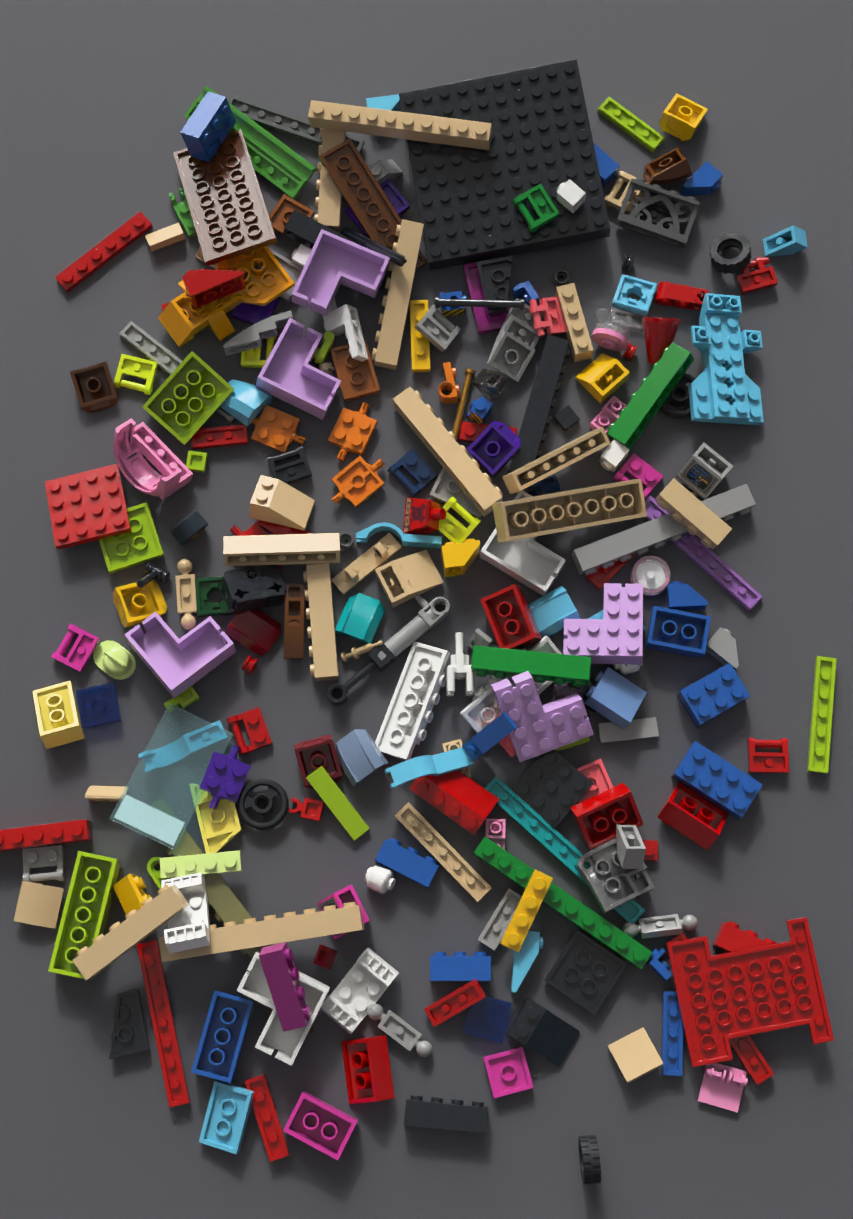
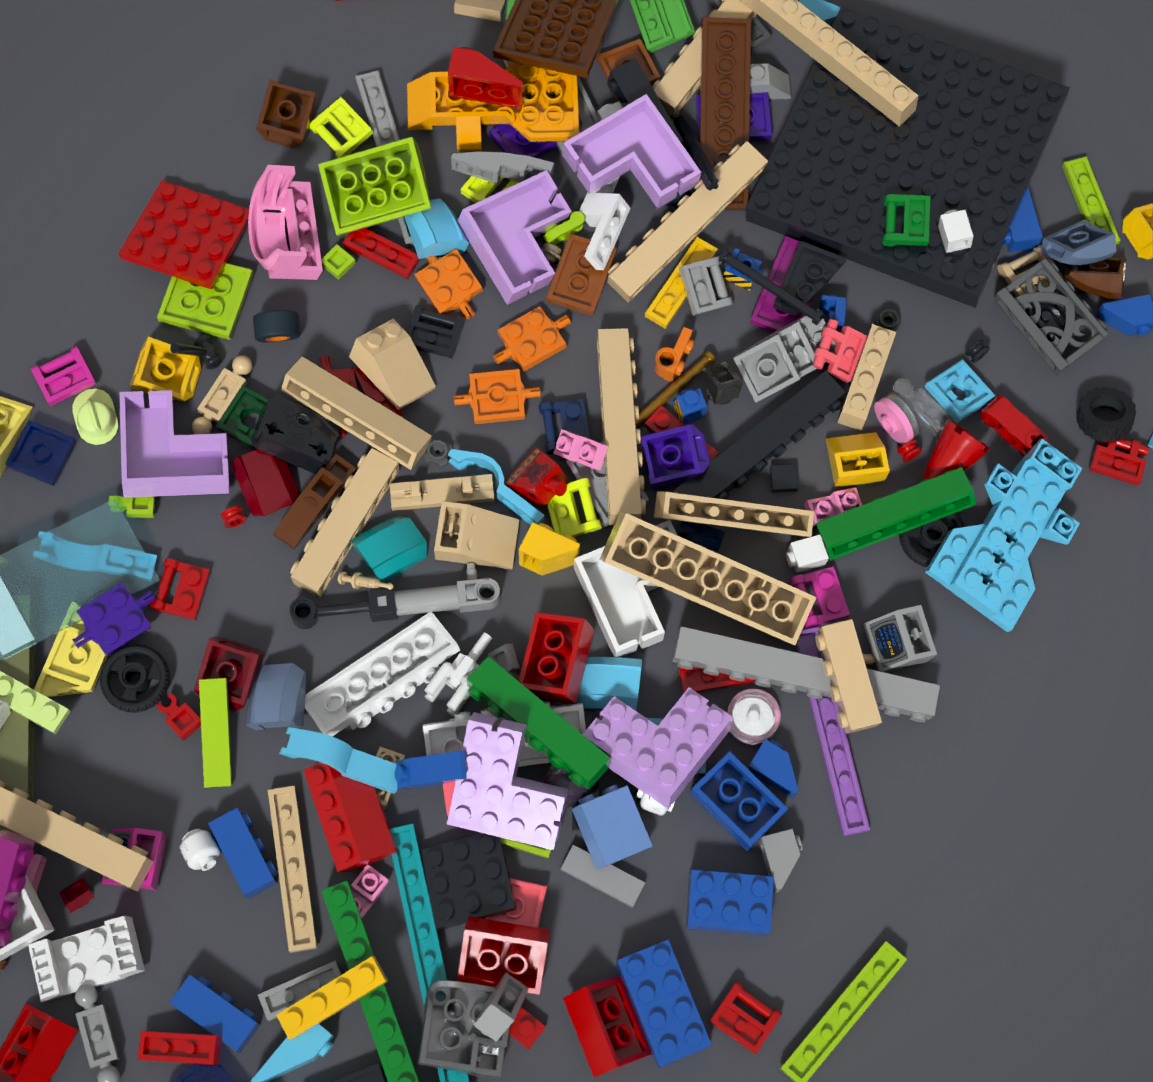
camera: 30 degrees right, 5 degrees down
(435, 481) = (580, 449): none -> bright pink slope
(644, 156) = (1080, 244): none -> sand blue slope

